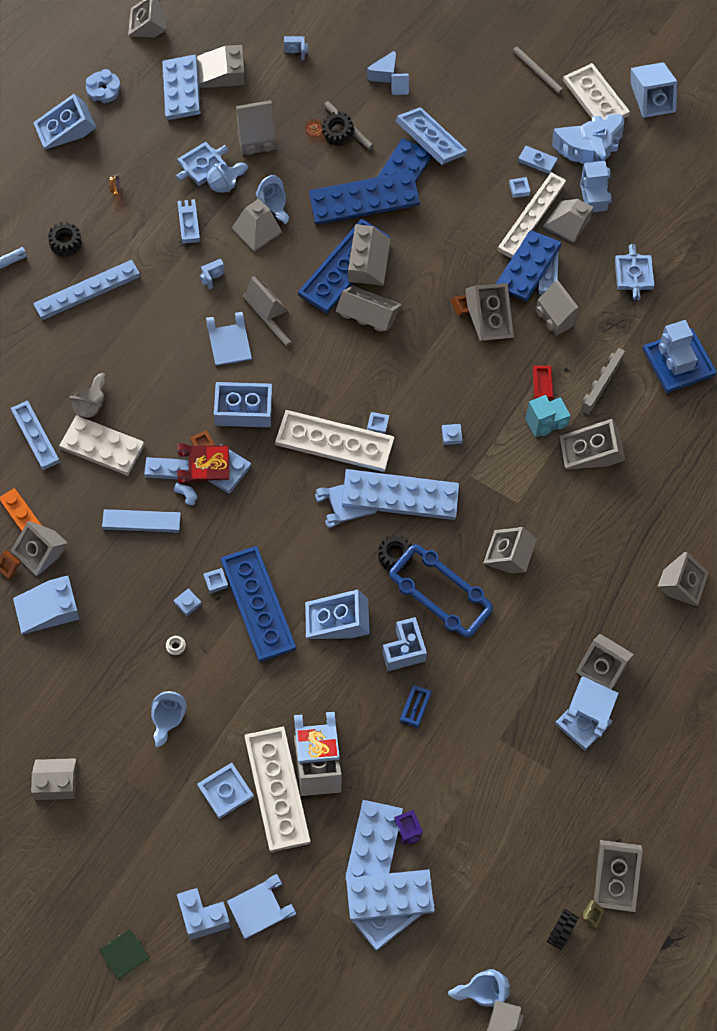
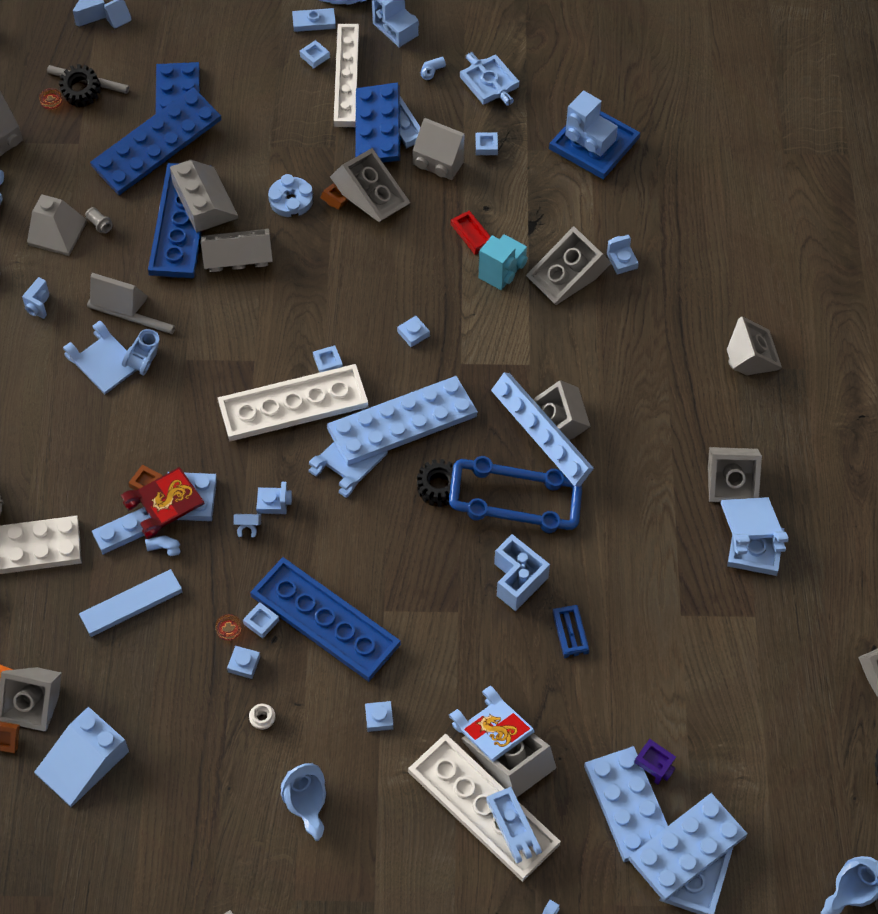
camera: 30 degrees left, 5 degrees down
(193, 573) = (228, 627): none -> clear orange tile
(225, 790) = (427, 843): light blue plate -> none
(243, 404) = (167, 416): light blue brick -> none
(250, 689) = (379, 716): none -> light blue plate
(251, 507) = (247, 520): none -> light blue tile
(253, 351) = (140, 354): none -> light blue piece
(273, 196) = (52, 183): light blue piece -> none
(278, 502) = (273, 500): none -> light blue bracket
(285, 811) = (513, 824): none -> light blue hinge
(289, 239) = (102, 223): none -> light grey pin
(338, 616) = (422, 583): light blue slope -> none
(431, 135) = (186, 46): light blue plate -> none
(436, 279) = (286, 186): none -> light blue plate
(490, 555) = (542, 429): none -> light blue plate
(569, 219) = (387, 60): light grey slope -> none
(597, 240) = (429, 67): none -> light blue arm
(598, 321) = (486, 143): none -> light blue plate
(605, 376) = (532, 205): light grey plate -> none
(639, 458) = (621, 254): none -> light blue bracket

